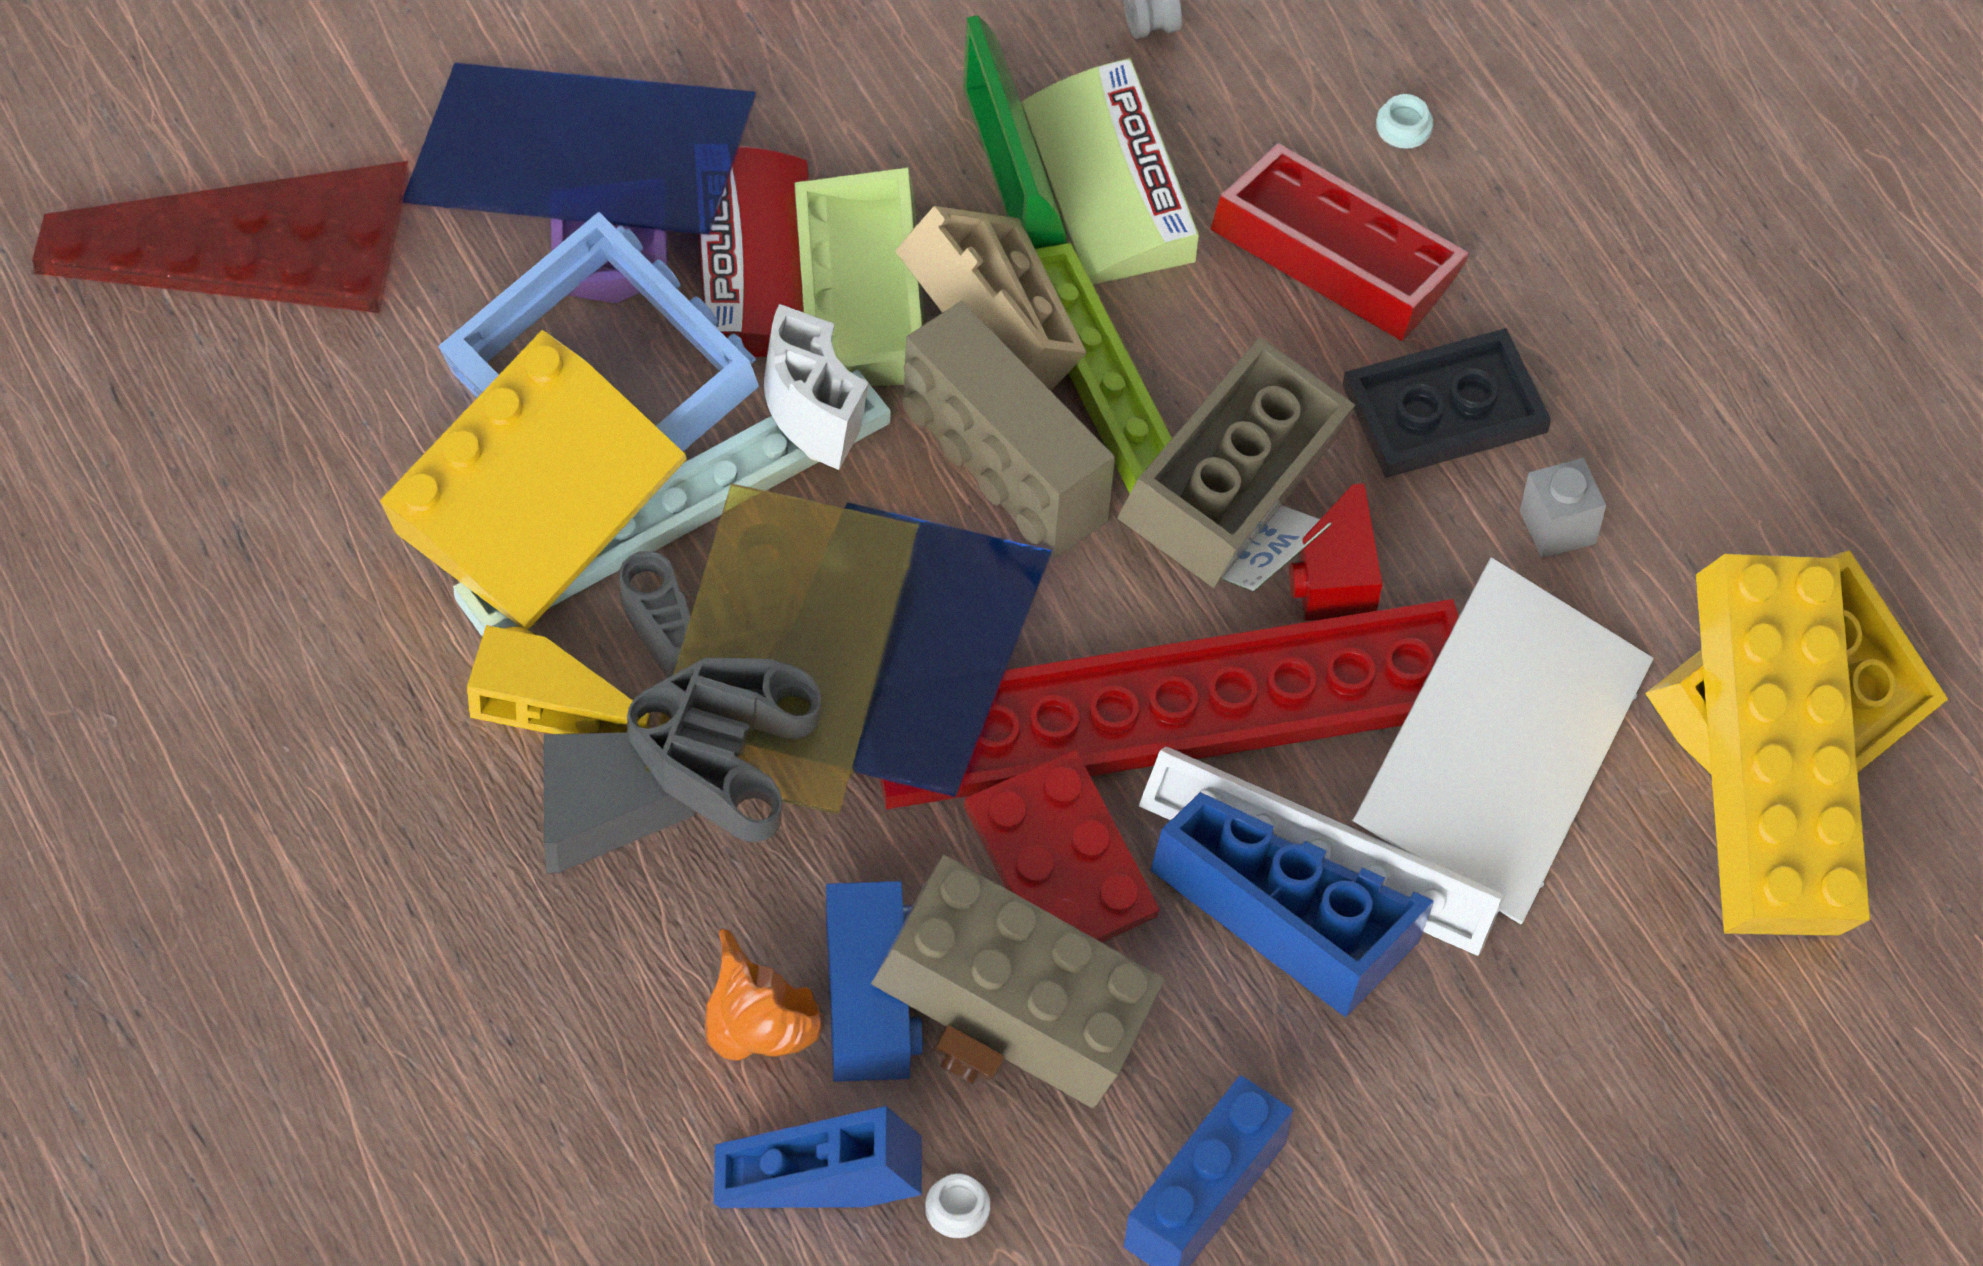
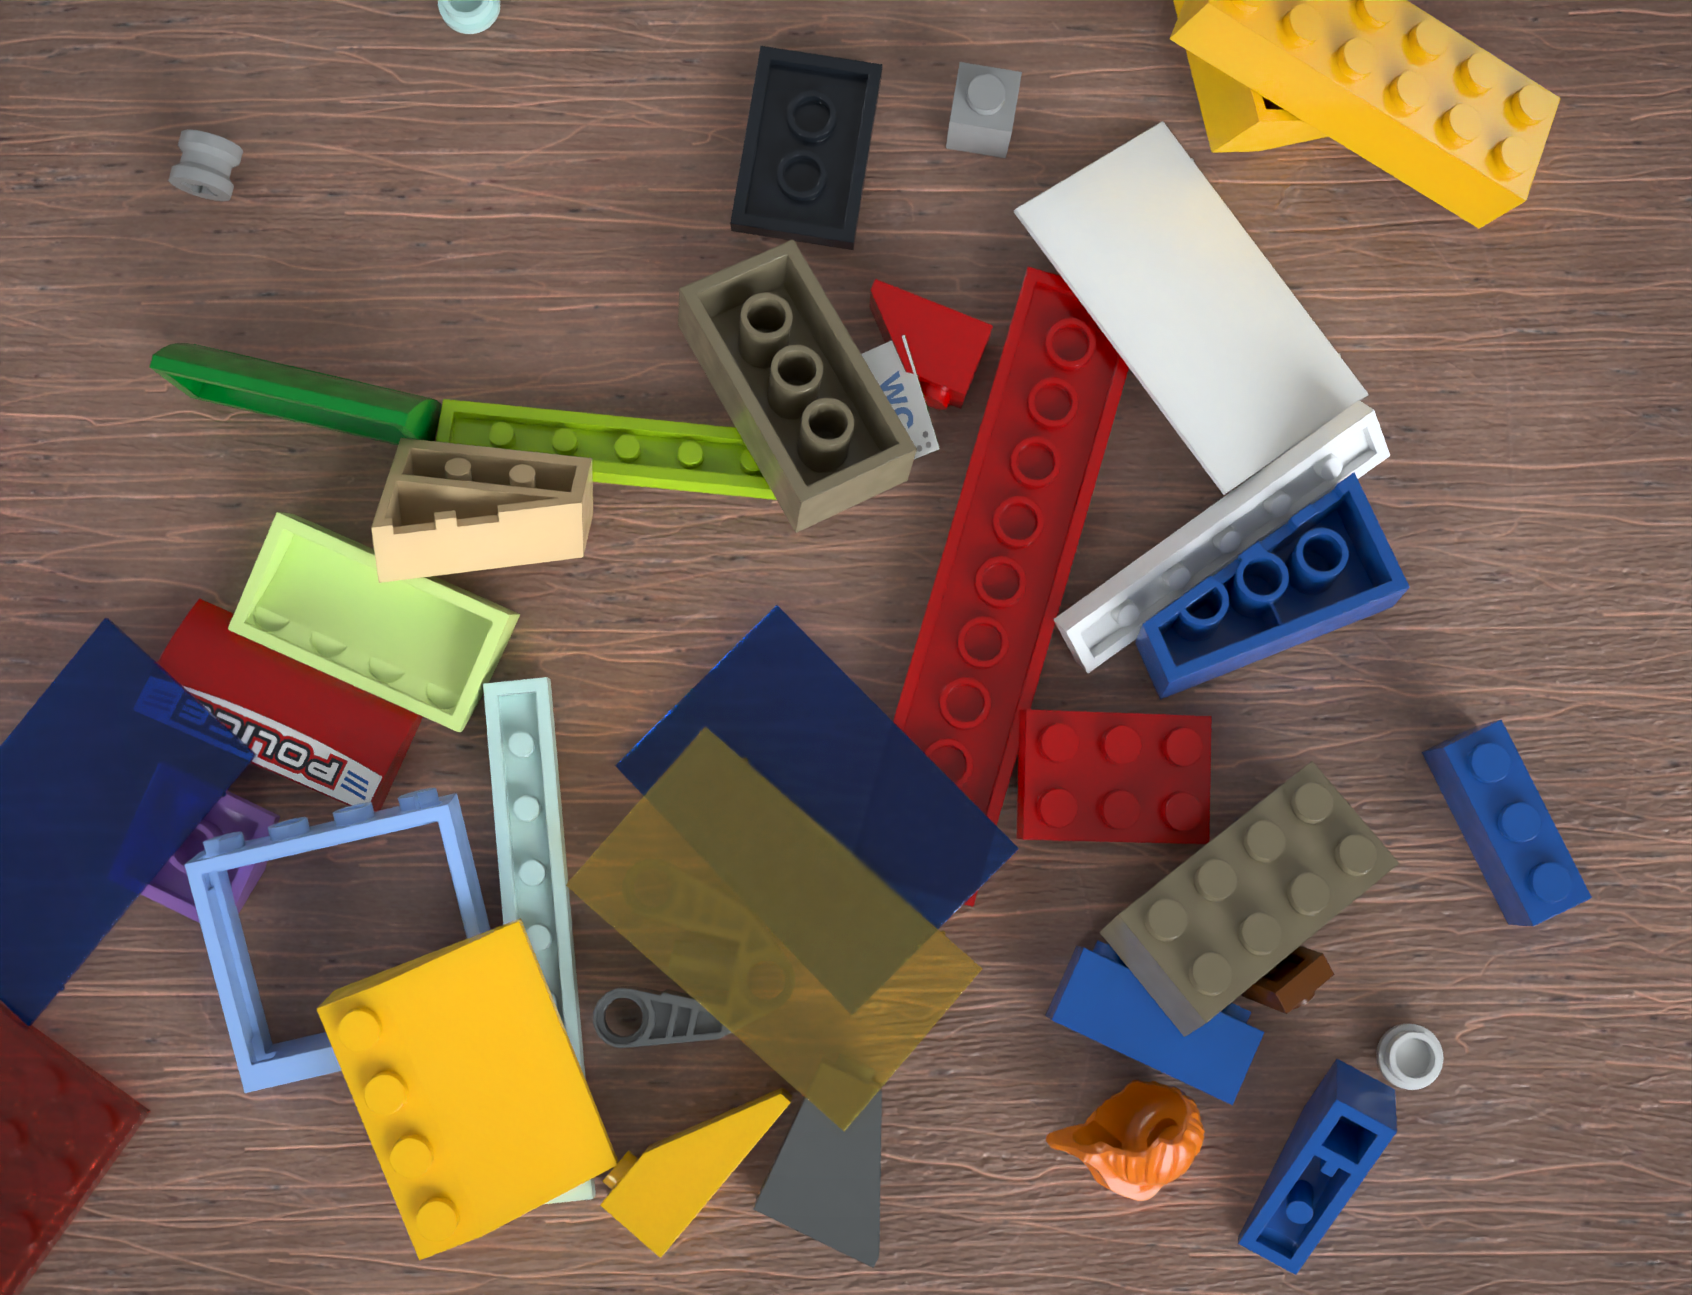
camera: 60 degrees left, 25 degrees up
(710, 717) = (898, 1094): dark grey connector -> none
(810, 389) = (499, 756): white brick -> none
(1007, 430) = (636, 583): dark tan brick -> none
(1111, 174) = (376, 314): yellowish green slope -> none
(1338, 241) = (571, 141): red slope -> none

